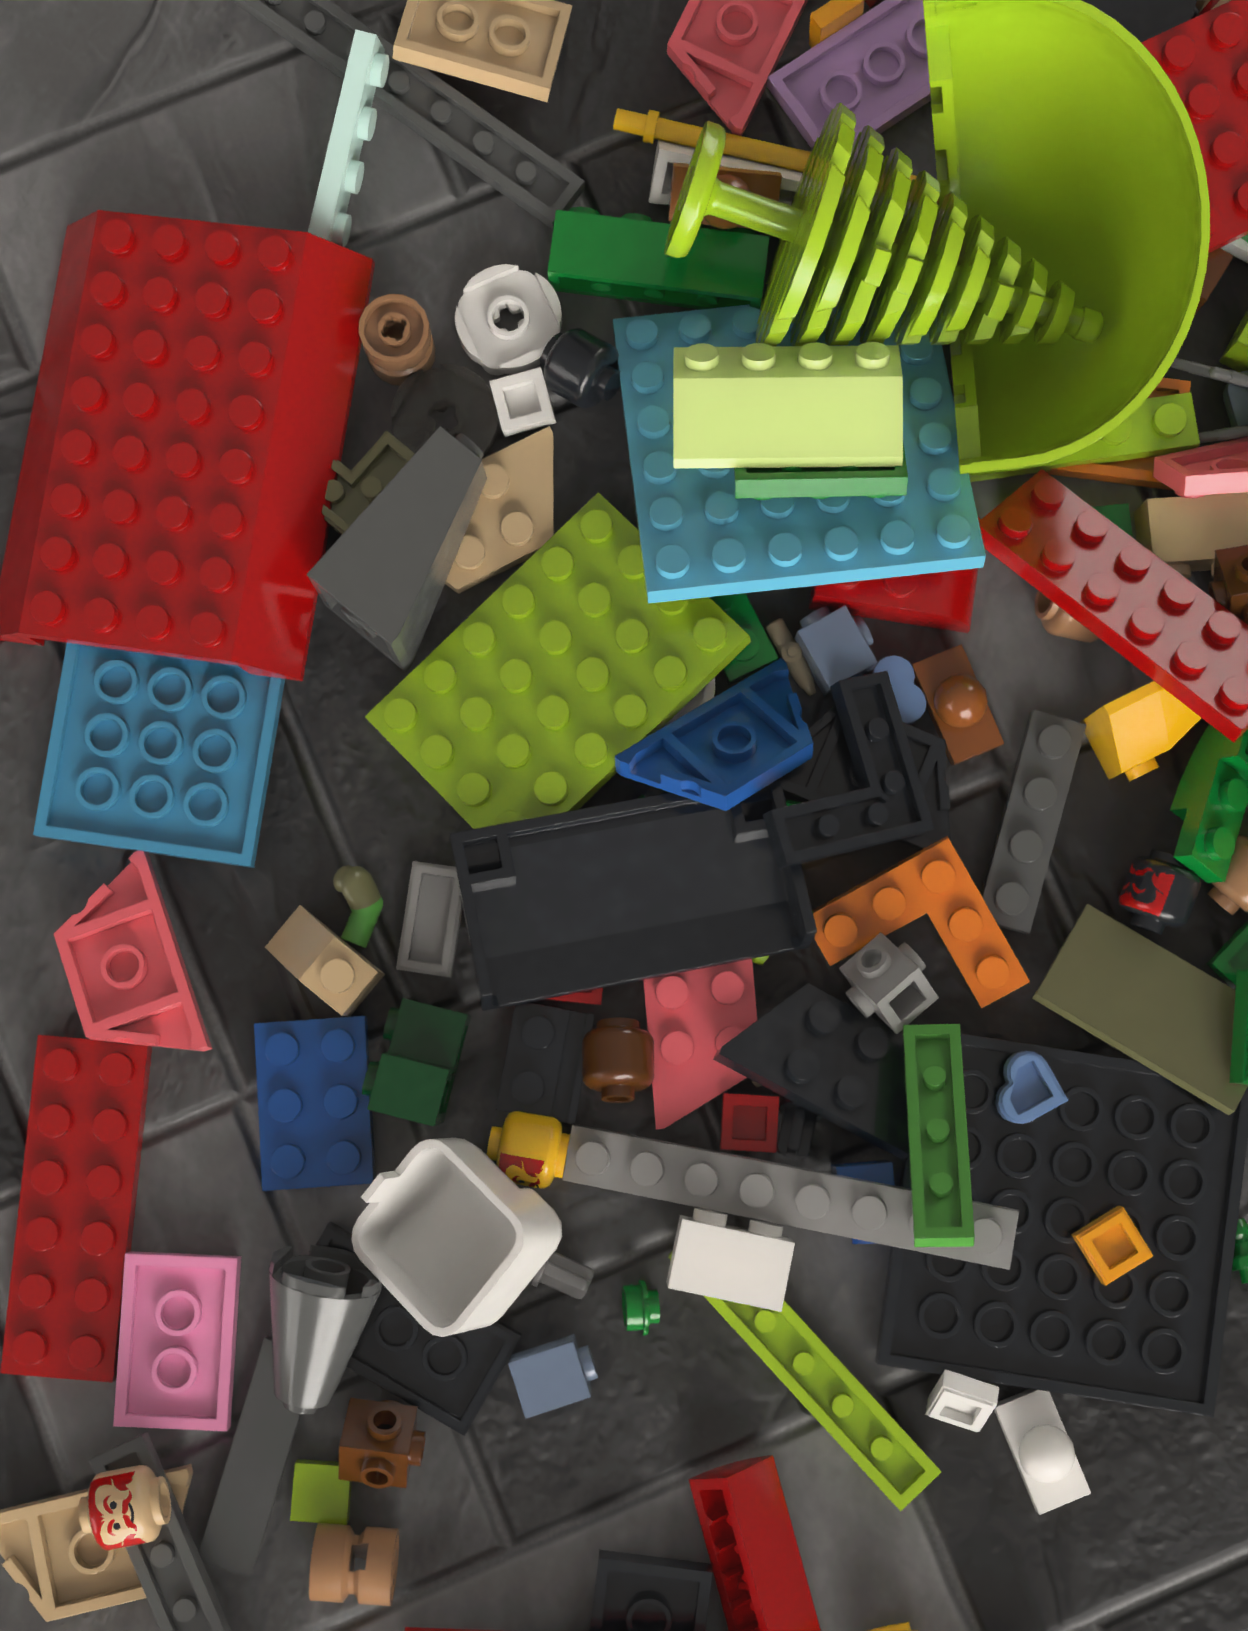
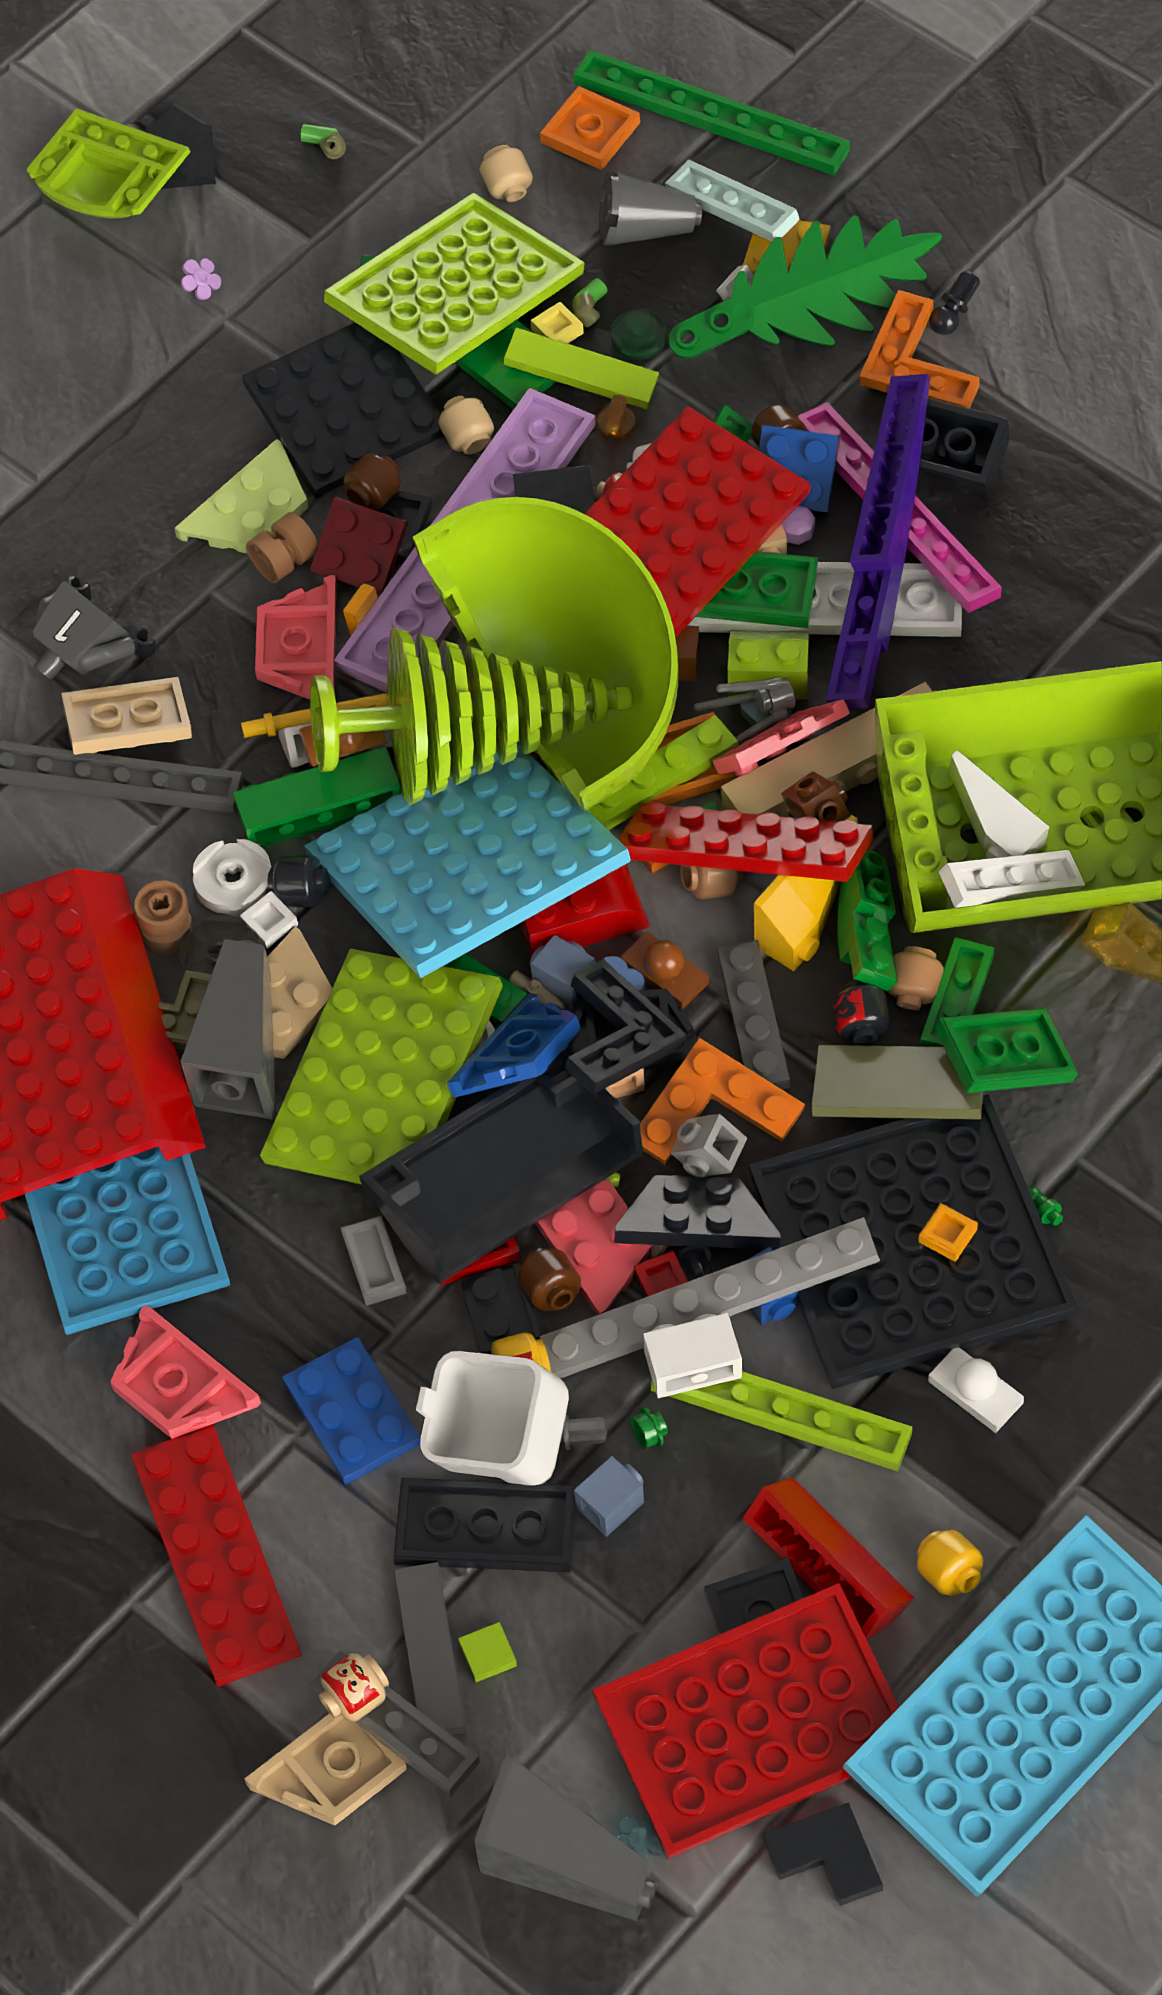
camera: 20 degrees left, 25 degrees down
(177, 1341) = (332, 1597): bright pink plate -> none
(316, 1321) = (426, 1522): dark grey cone -> none
(324, 962) = (313, 1314): tan slope -> none
(333, 1564) = (535, 1675): medium nougat wheel -> none
(351, 126) = (68, 802): light aqua plate -> none
(363, 899) = (318, 1266): arm -> none
(380, 1443) = (512, 1589): reddish brown brick -> none
(421, 1062) = (409, 1341): dark green brick -> none
(787, 406) = (449, 819): yellowish green slope -> none
(821, 482) = (492, 848): plate -> none
(938, 1136) = (786, 1201): bright green plate -> none
(962, 1401) = (902, 1379): white tile -> none
(1028, 1088) = (838, 1165): medium blue tile -> none

